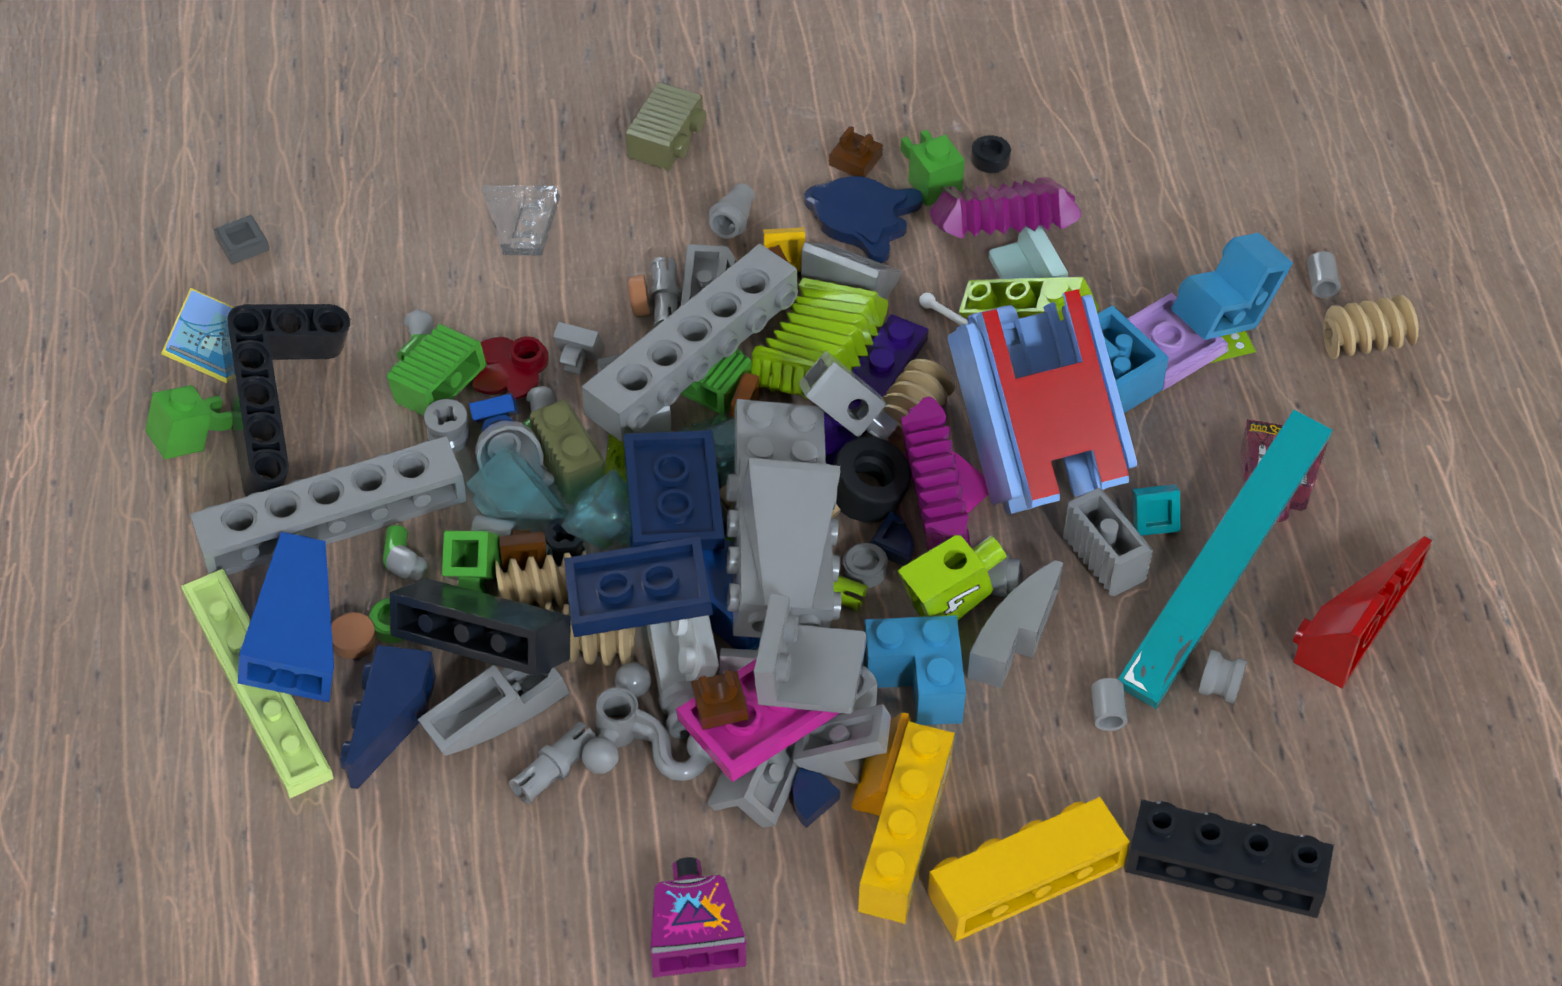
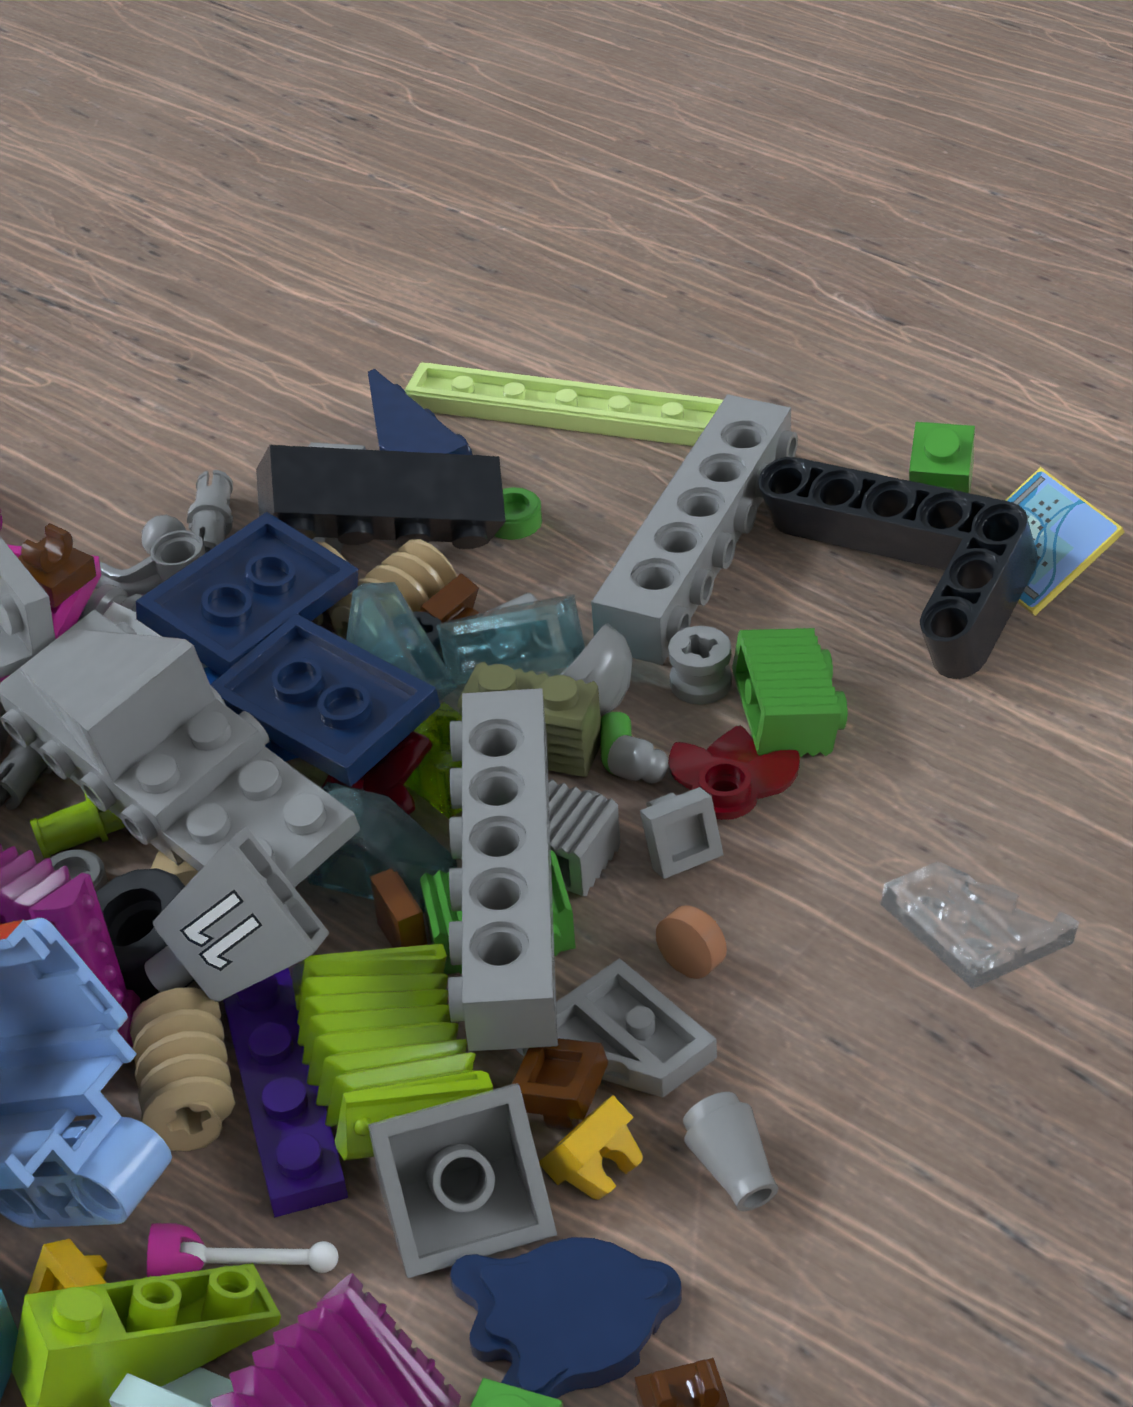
camera: 140 degrees right, 10 degrees down
(290, 628) = (577, 422): blue slope -> none
(353, 635) = (532, 473): nougat tile -> none
(399, 558) = (578, 546): light grey arm -> none
(419, 324) = (876, 727): light grey arm -> none
(471, 558) = (492, 559): bright green brick -> none
(494, 410) = (666, 702): blue tile -> none
(665, 126) = (990, 1192): olive brick -> none
(665, 293) = (671, 975): light grey pin -> none

